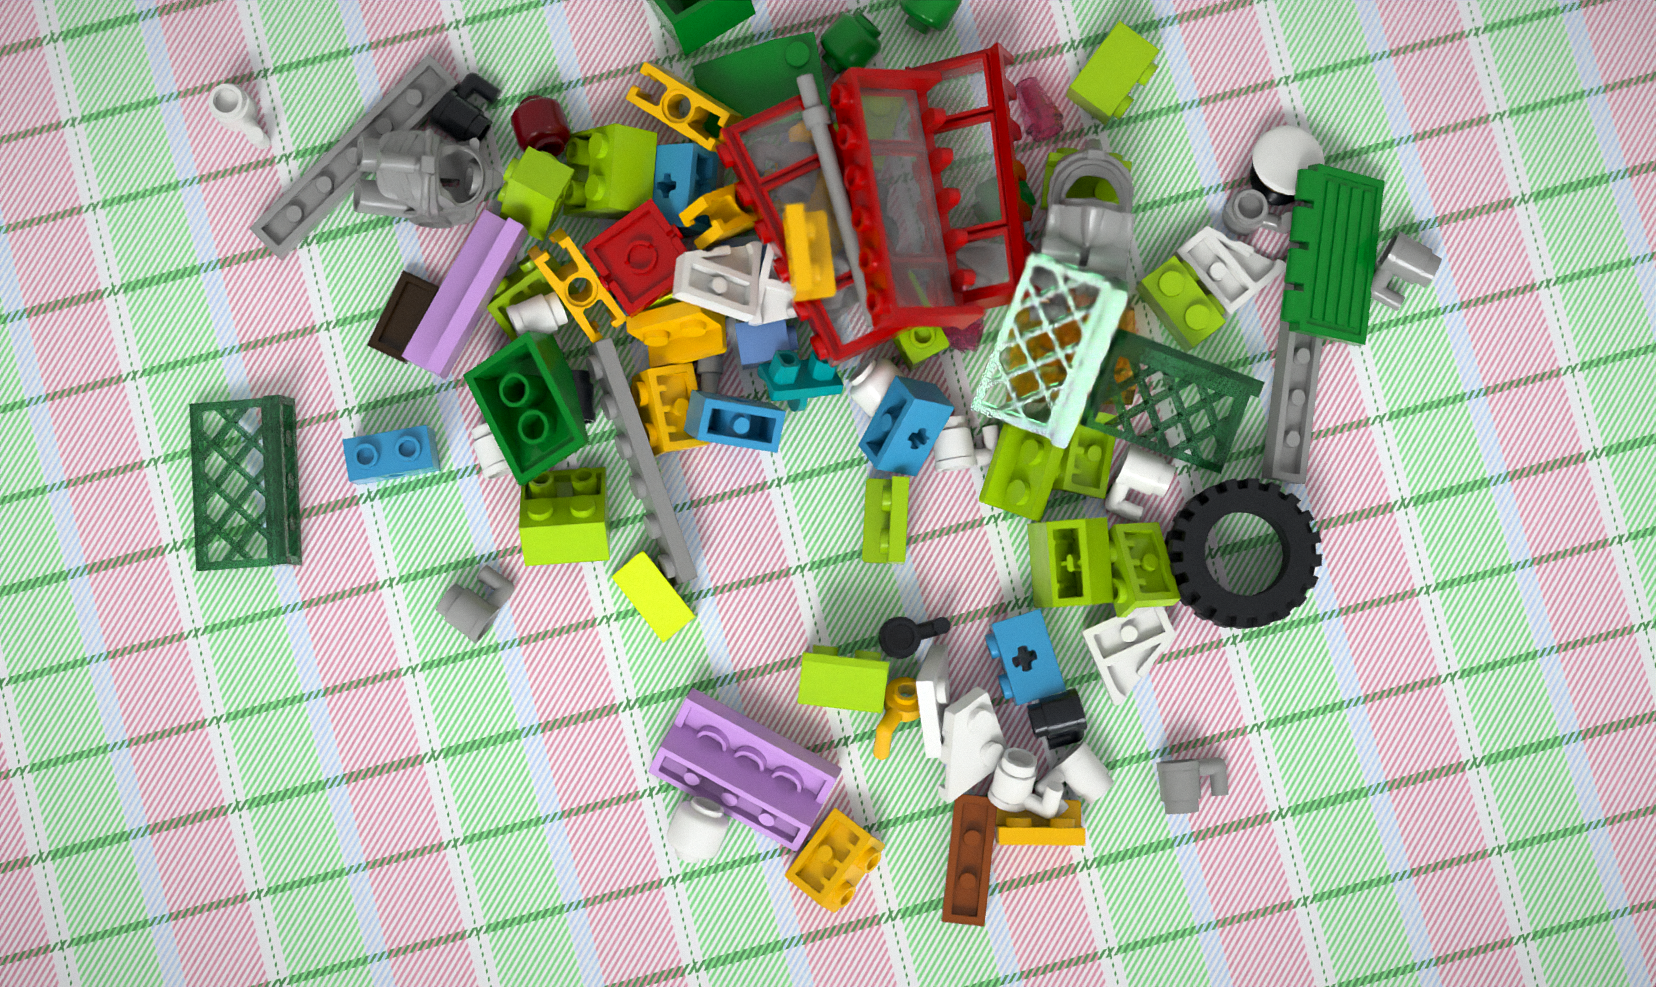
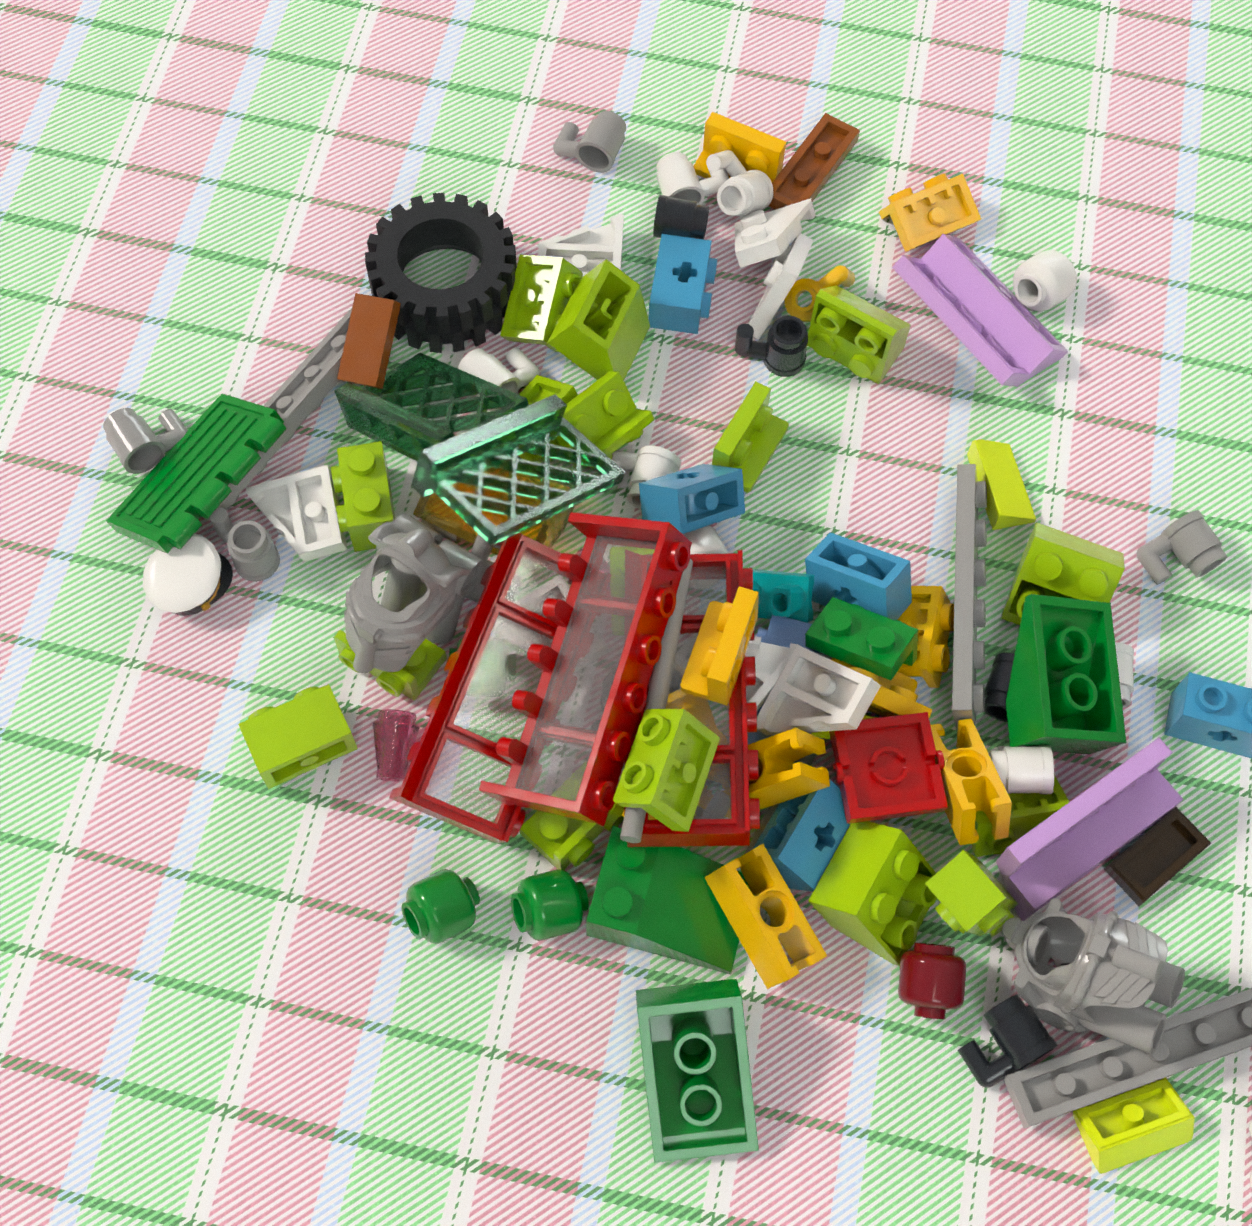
camera: 155 degrees left, 20 degrees down
(351, 98) = (1134, 1125): none -> neon yellow slope
(707, 359) = (863, 638): none -> green bracket
(802, 137) = (667, 767): none -> lime bracket
(1260, 438) = (369, 341): none -> dark orange tile

